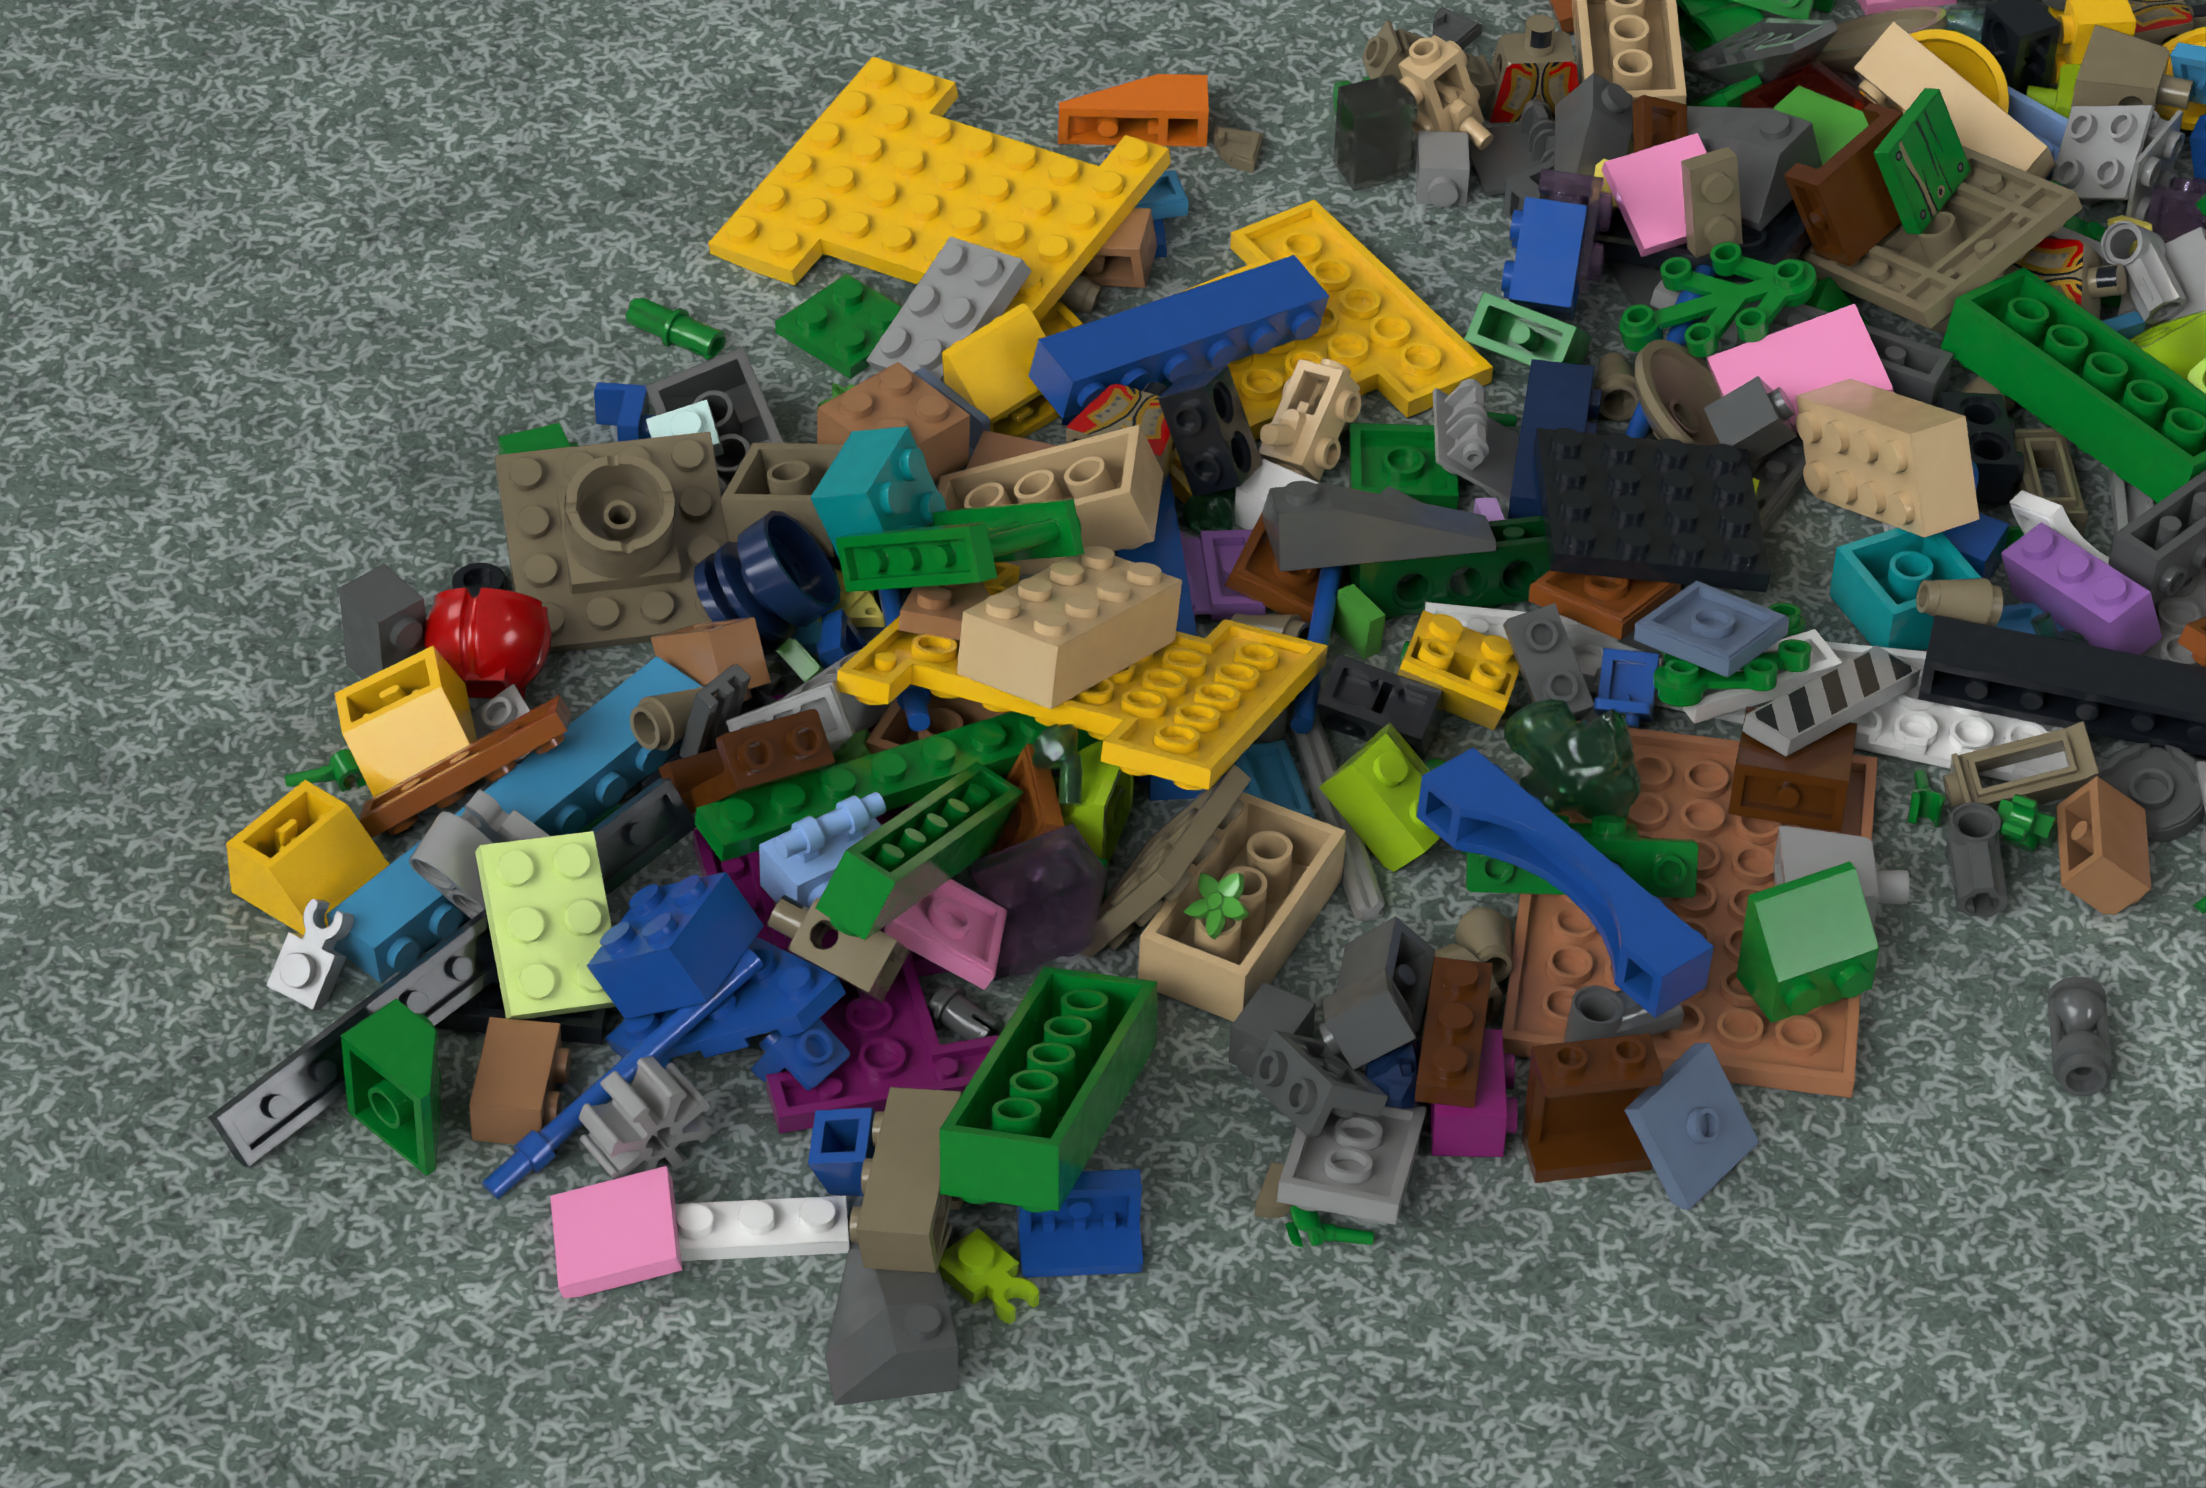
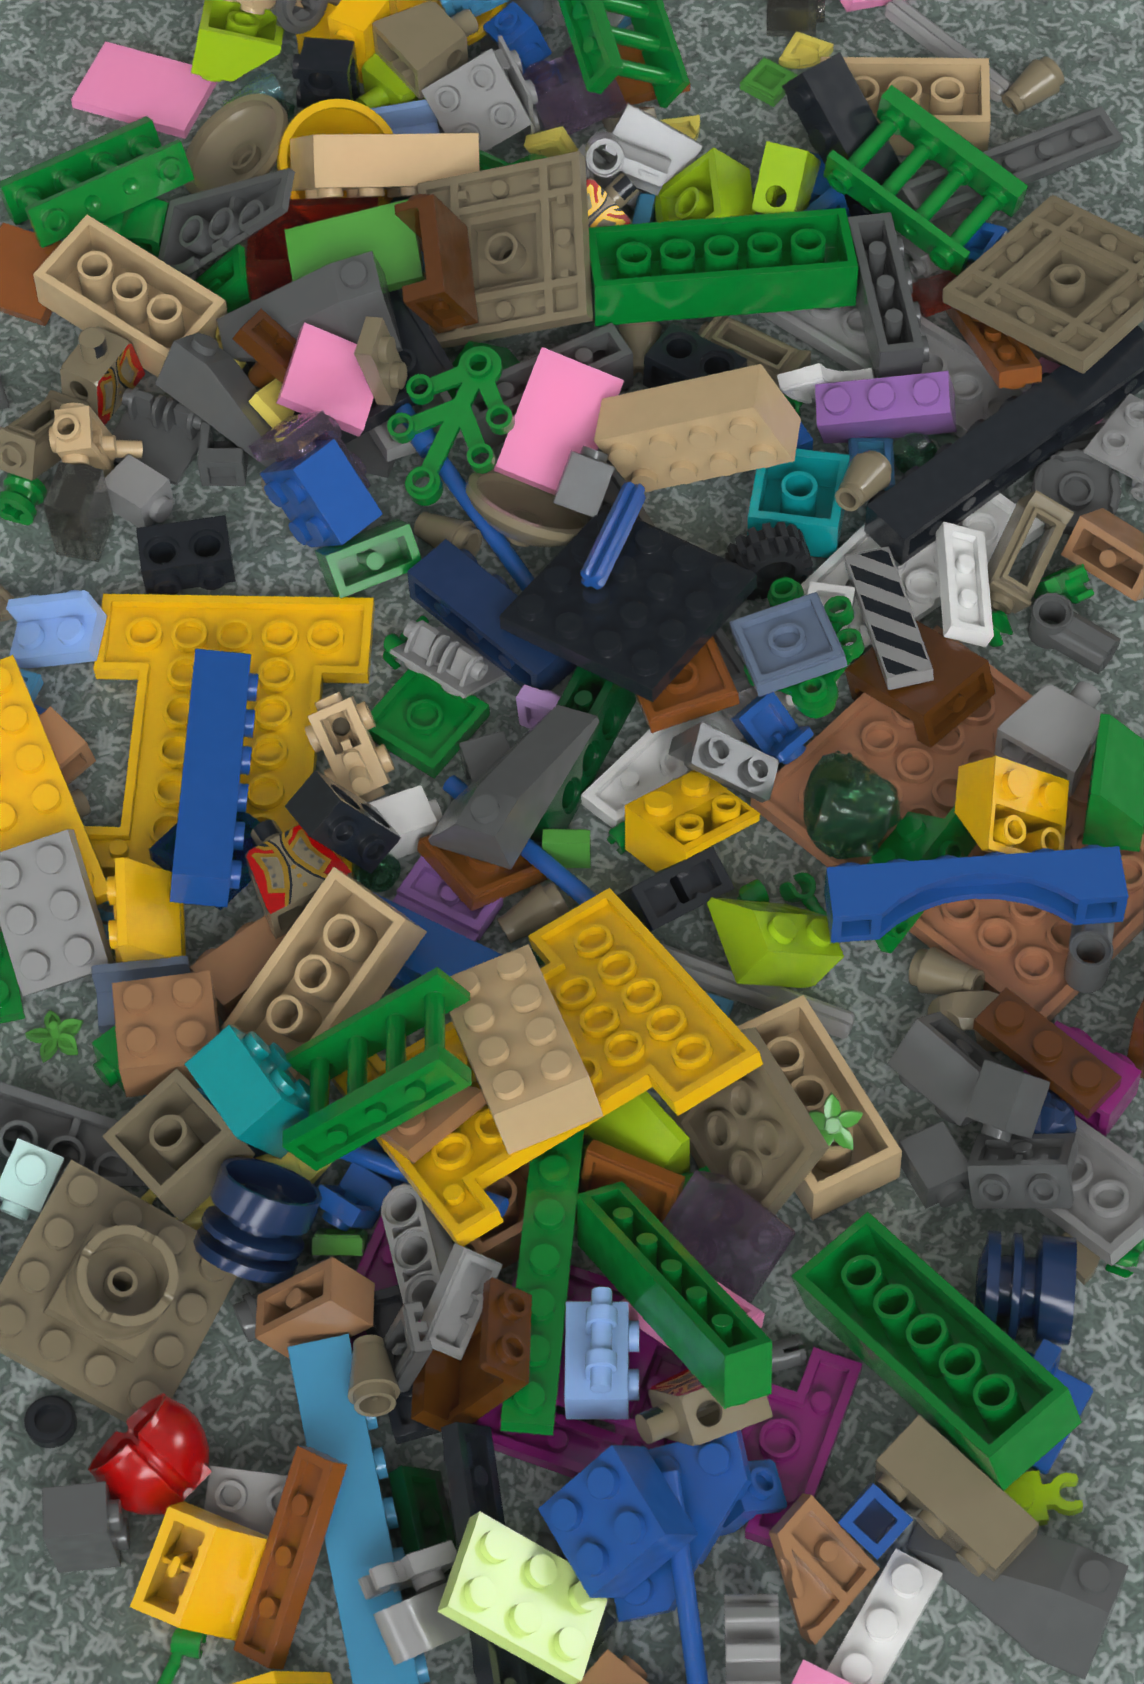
camera: 50 degrees left, 15 degrees up
(771, 1138) = (818, 1566): none -> medium nougat wing
(1058, 750) = (623, 1134): clear green plate -> none
(1192, 1142) = (1029, 1286): none -> dark blue wheel
(1250, 191) = (56, 629): none -> light blue bracket
(1410, 229) = (186, 551): none -> black brick
(1693, 867) = (1011, 806): none -> yellow slope
(1701, 452) = (613, 535): none -> blue axle
(1811, 573) = (772, 555): none -> black tyre
(1922, 161) = (461, 214): green tile -> none
(1930, 737) = (964, 584): none -> white plate

